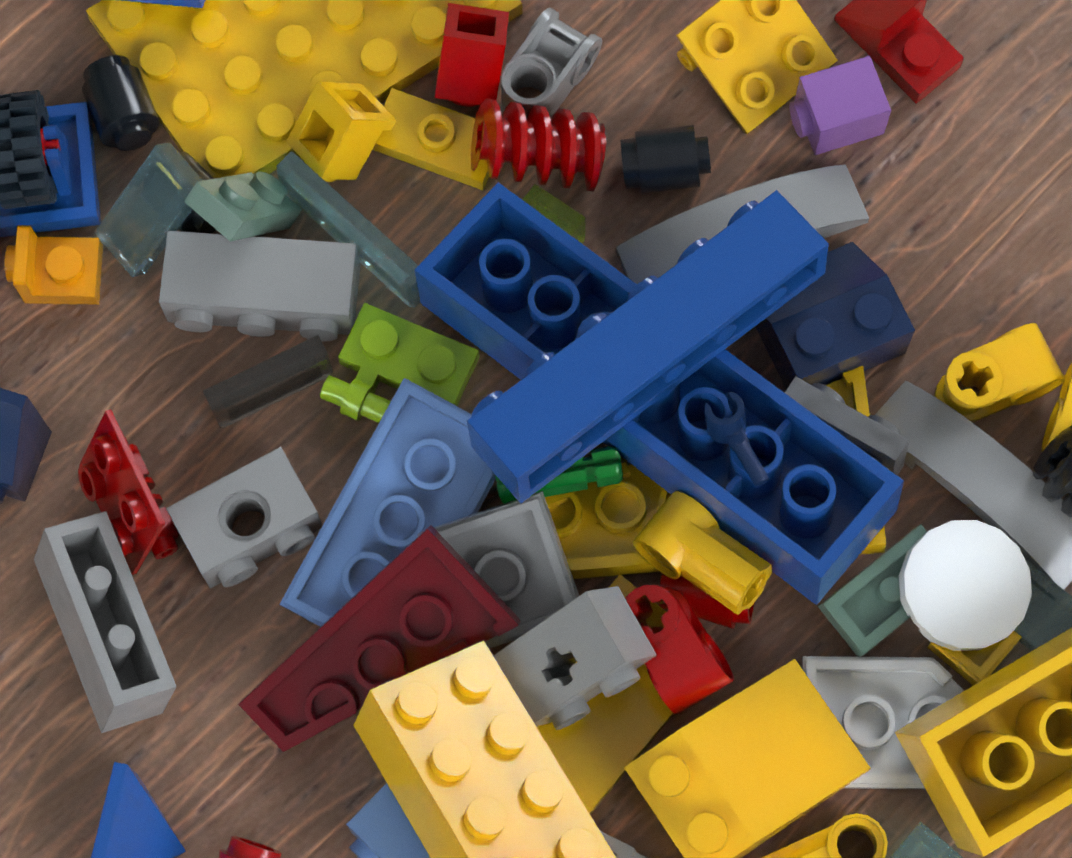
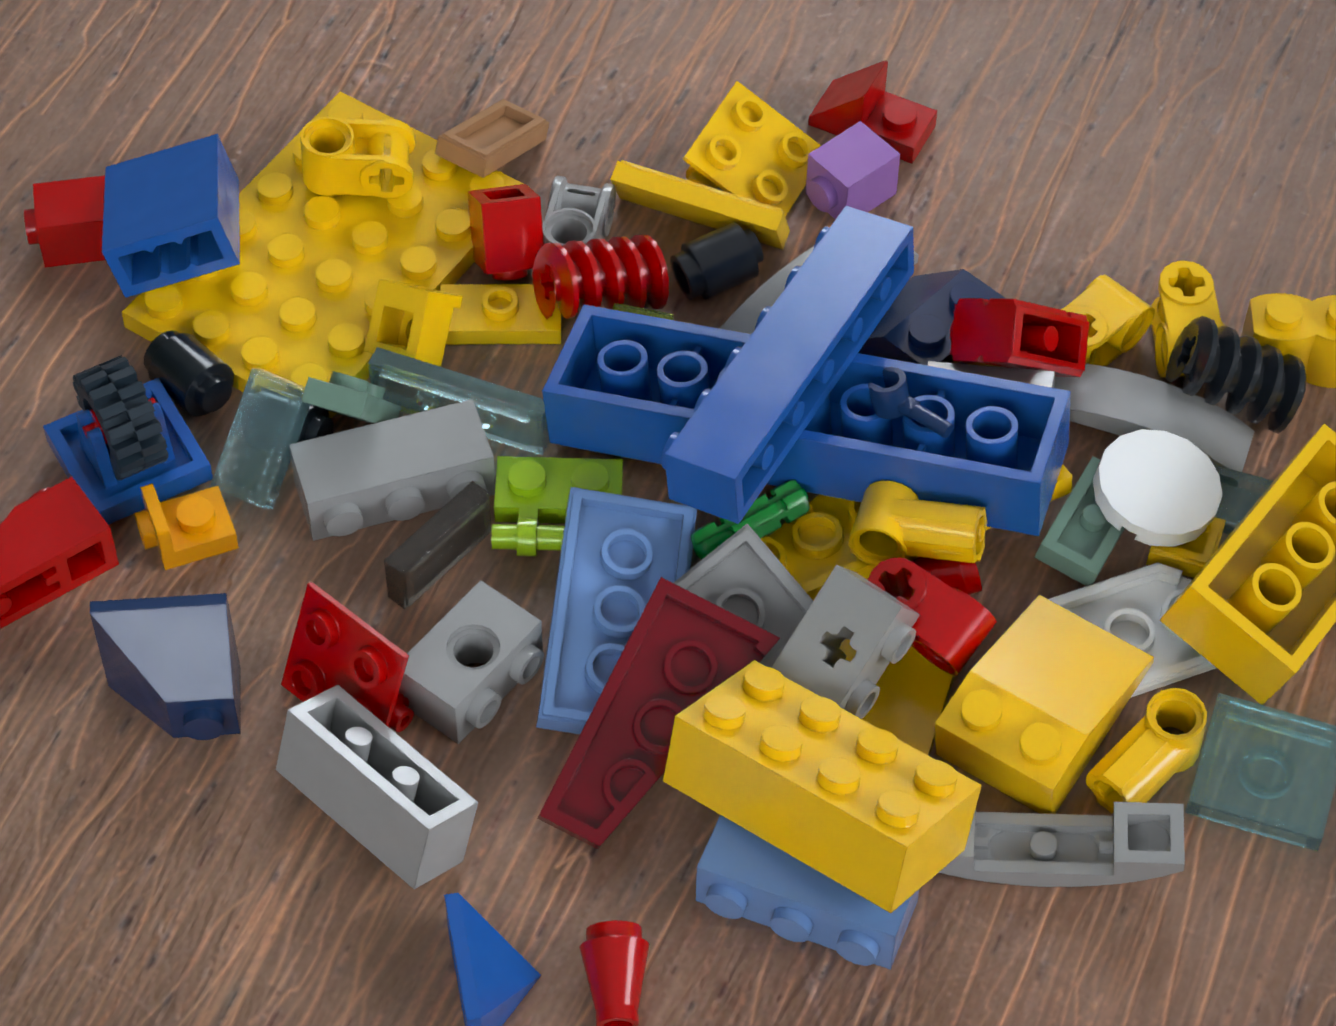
camera: 25 degrees left, 20 degrees down
(676, 88) = (698, 202): none -> yellow tile
(896, 384) = (1019, 336): none -> red brick

